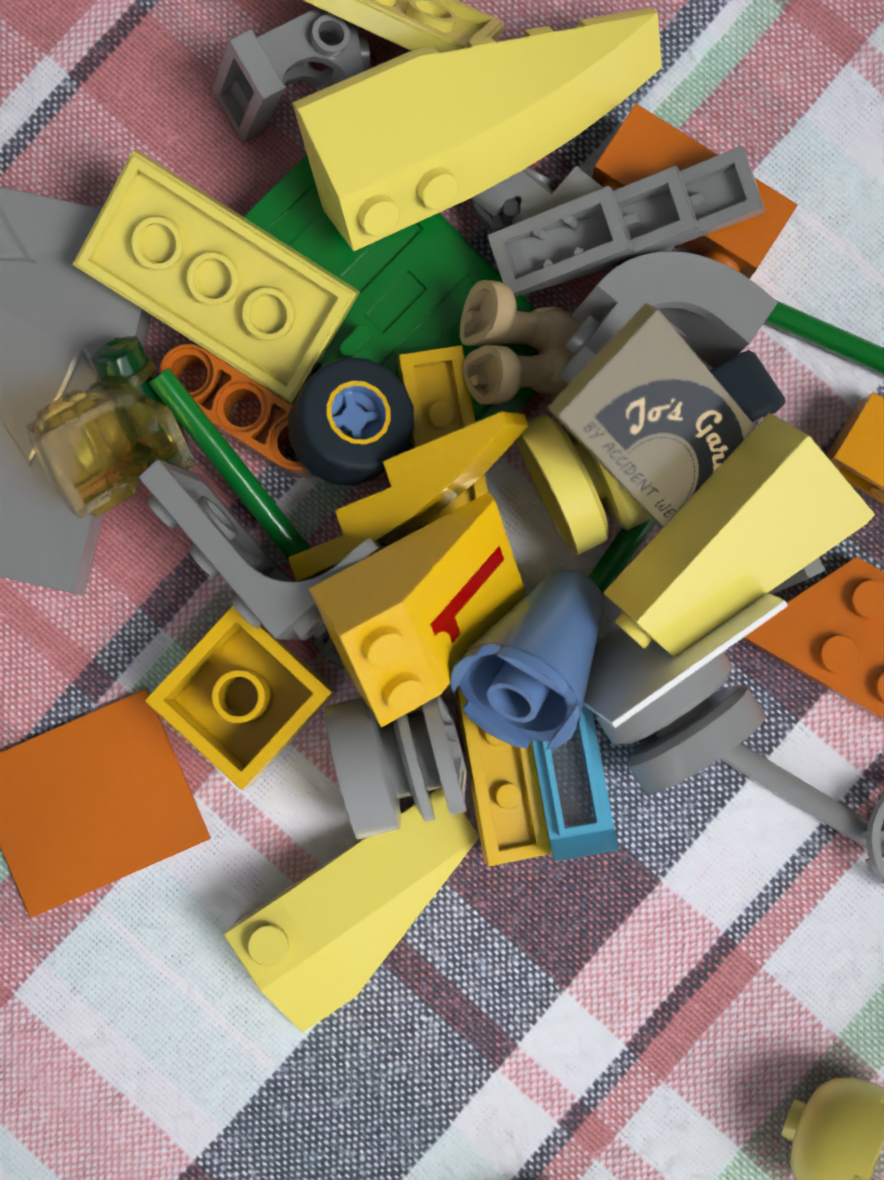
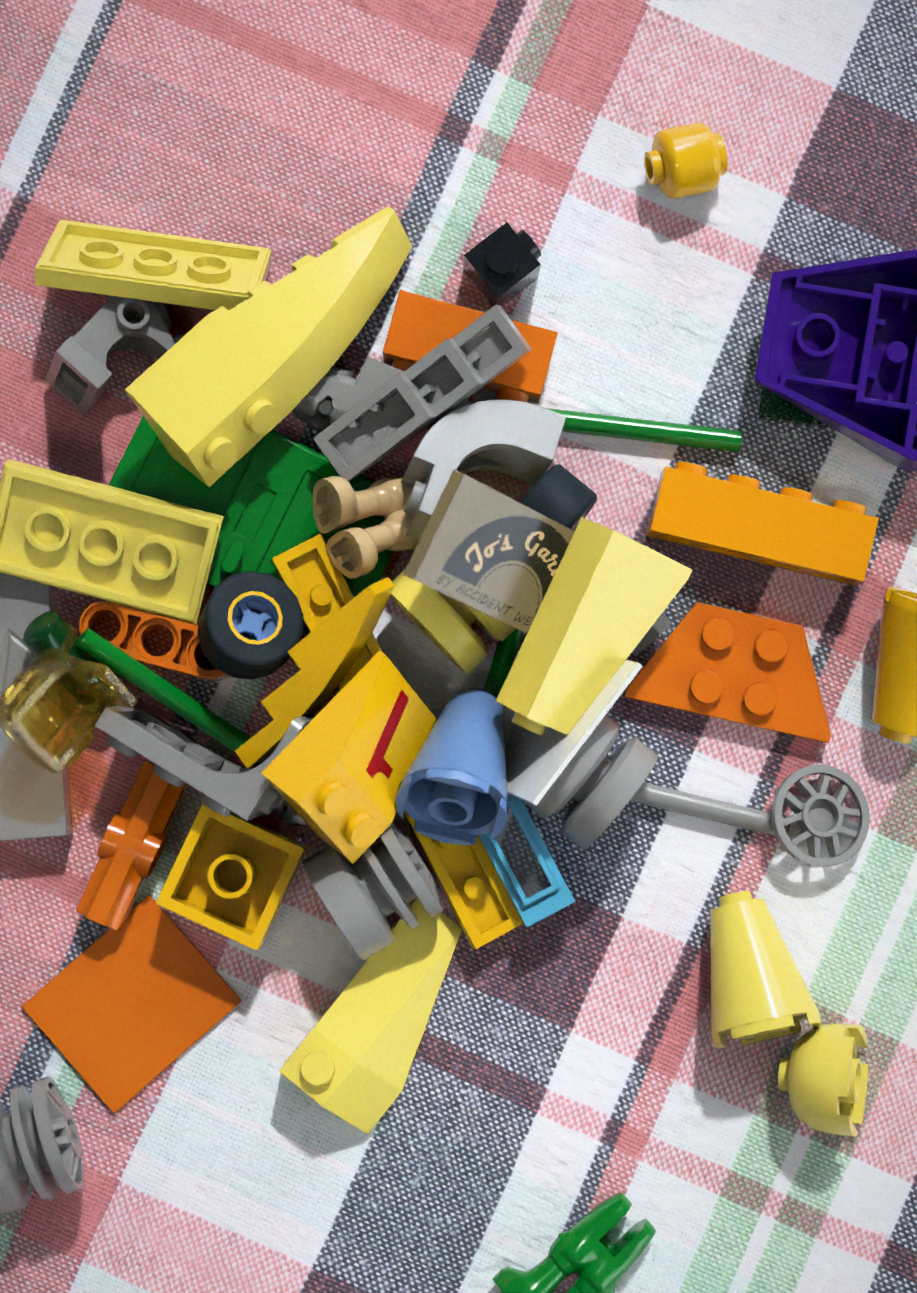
camera: 30 degrees left, 0 degrees up
(139, 631) = (130, 848): none -> orange piece
(758, 112) = (503, 264): none -> black brick
(794, 996) = (753, 976): none -> light yellow cone

